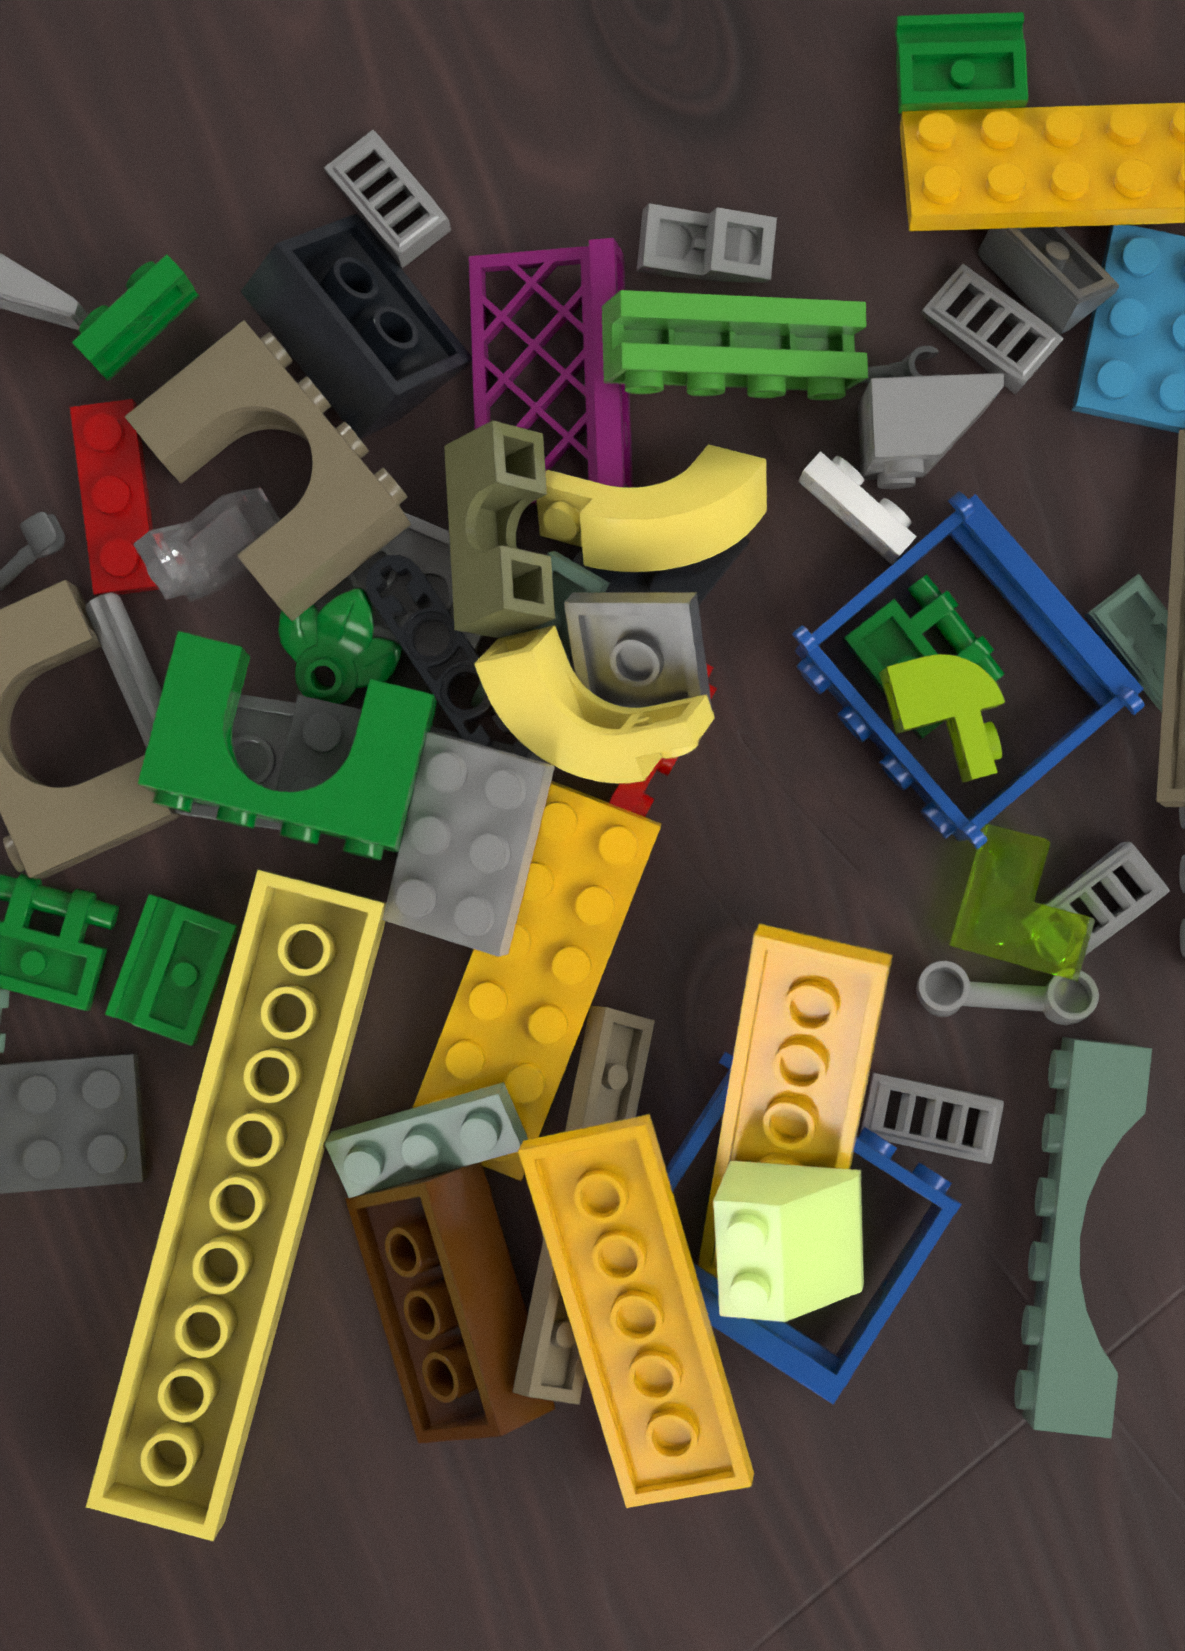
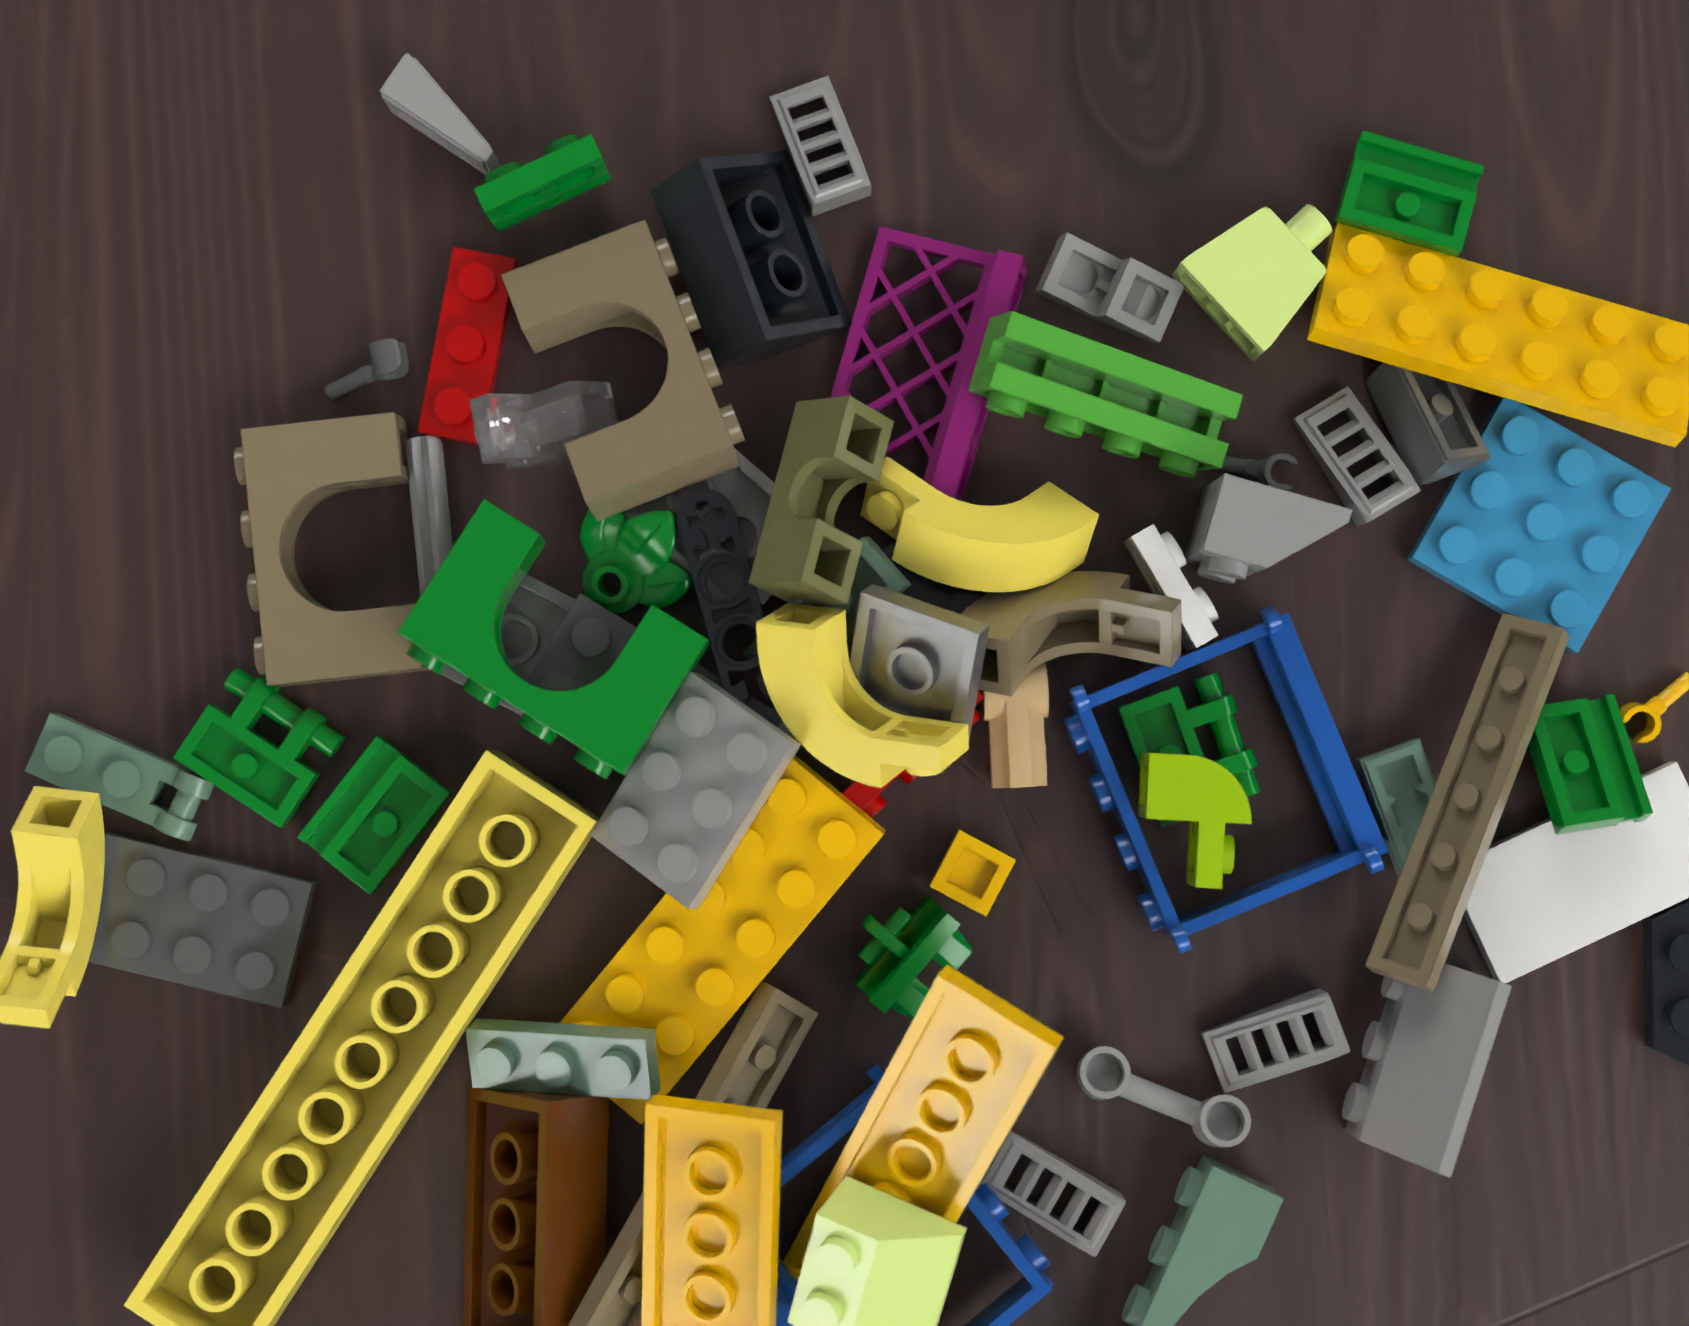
camera: 10 degrees right, 0 degrees up
(714, 934) = (903, 950): none -> green hips
(747, 672) = (1017, 732): none -> tan piece
(757, 839) = (972, 872): none -> yellow plate
(774, 564) = (1071, 617): none -> dark tan arch
(841, 185) = (1257, 275): none -> yellowish green torso
(1001, 914) = (1182, 1025): clear neon green plate -> none

